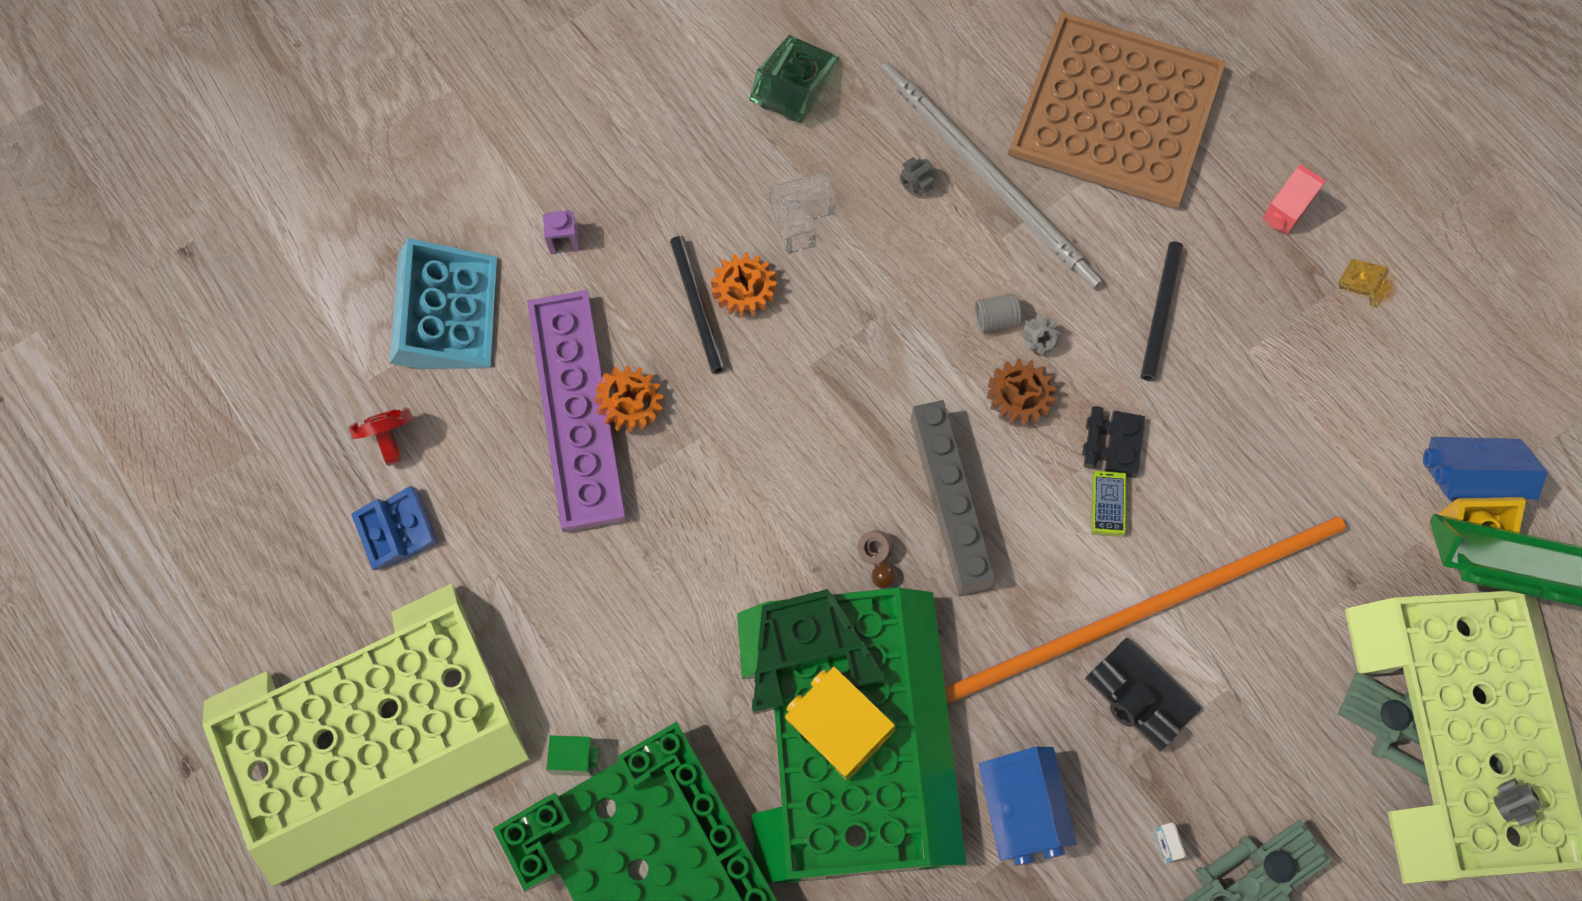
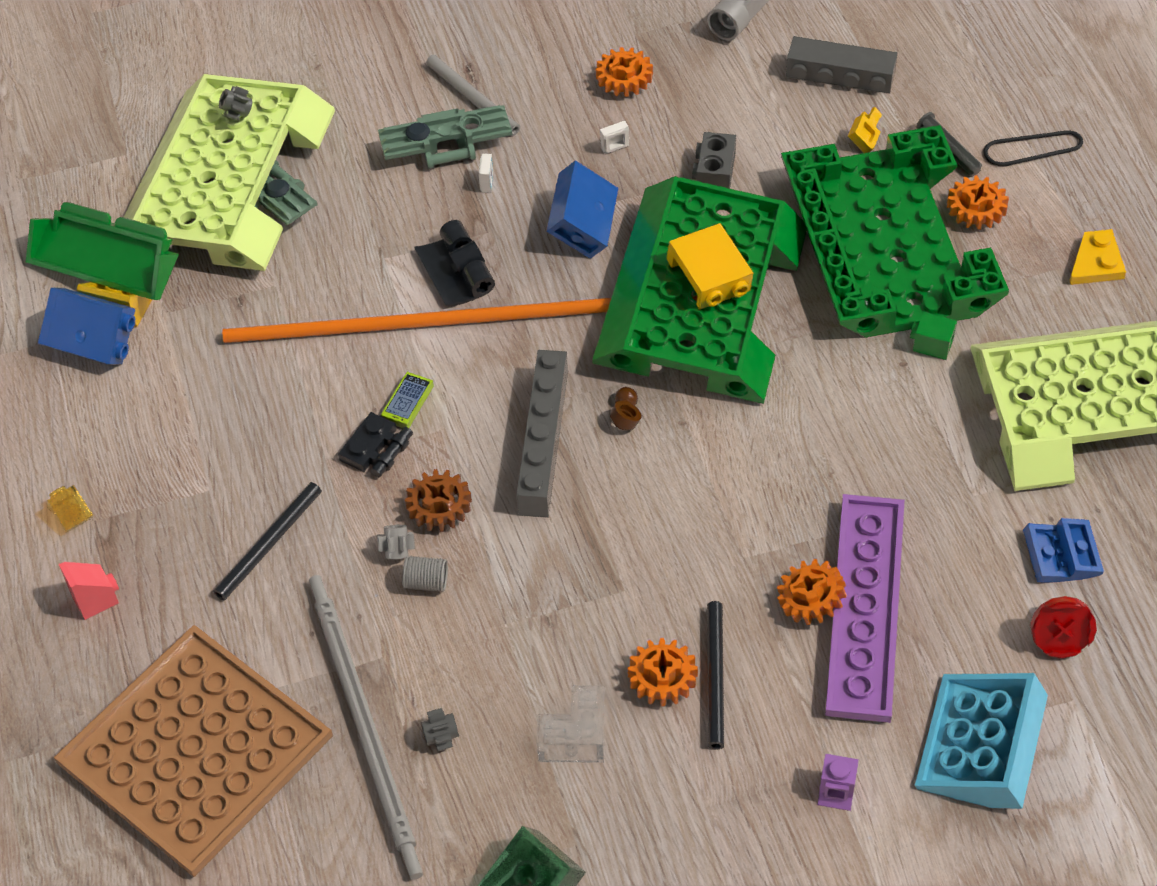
camera: 160 degrees left, 15 degrees down
(805, 633) = (713, 334): dark green wing -> none

